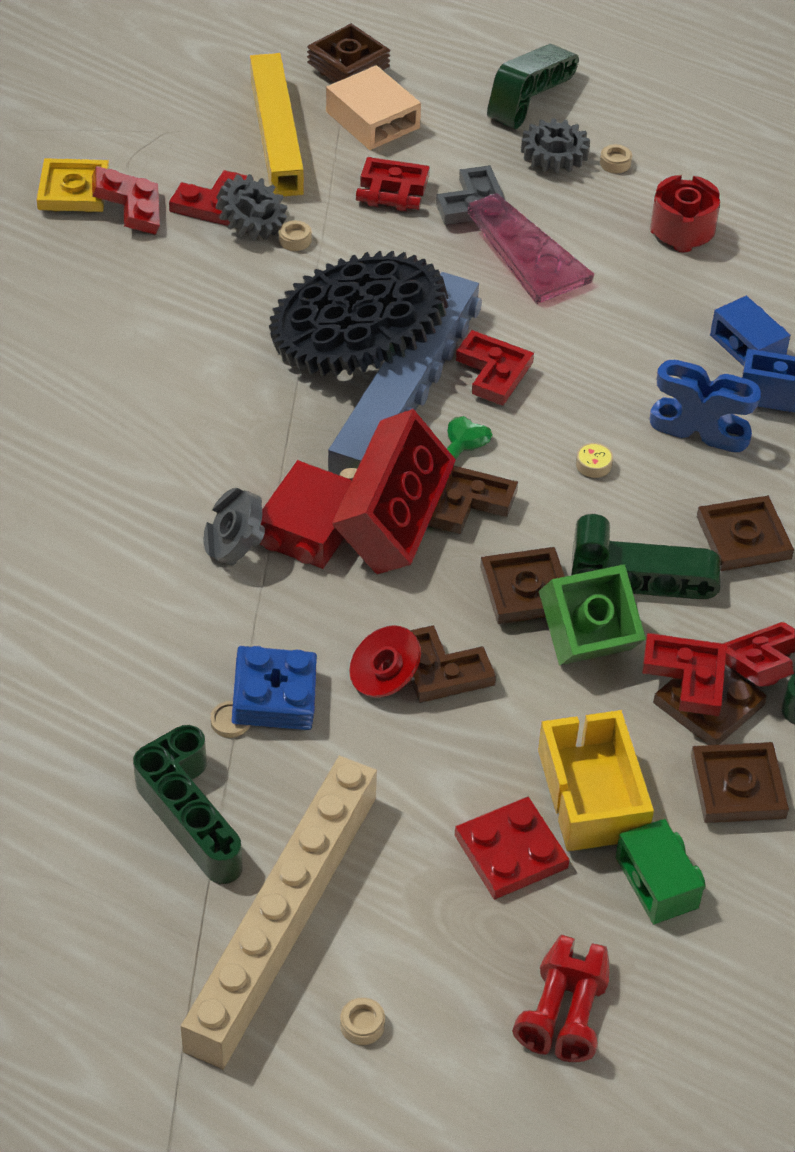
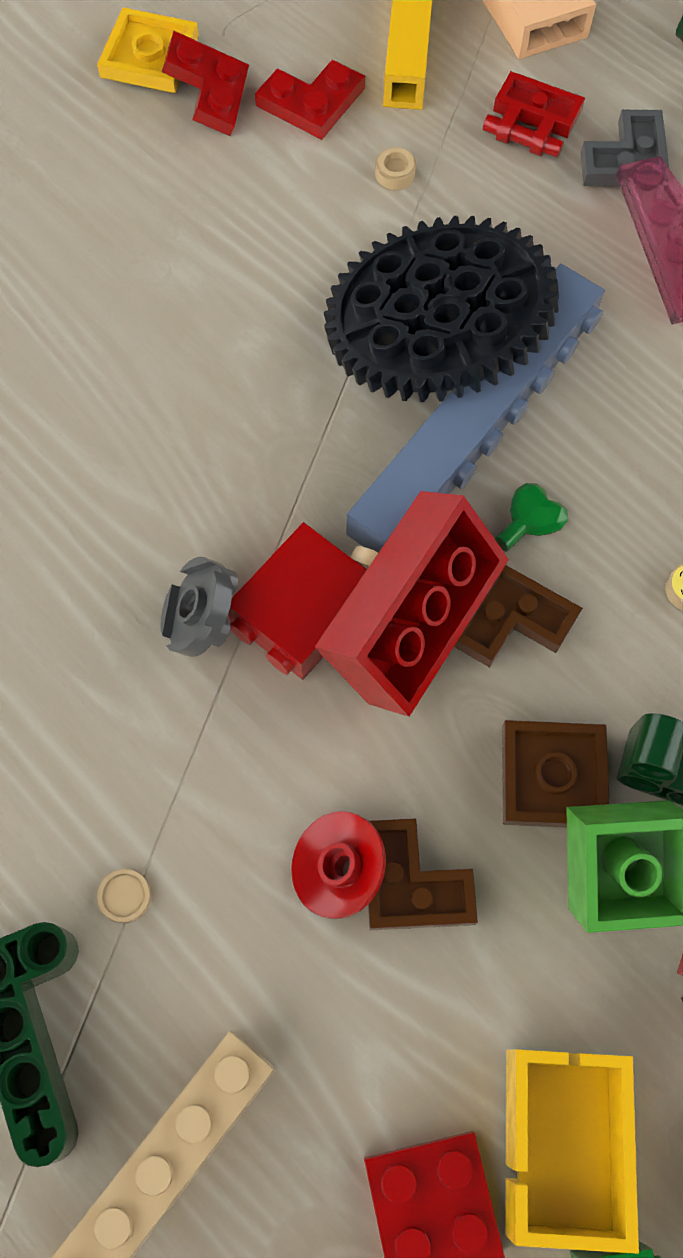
camera: 15 degrees right, 20 degrees up
(251, 207) = (347, 116): dark grey gear -> none
(274, 688) = (154, 887): blue brick -> none
(500, 362) = (606, 414): red plate -> none

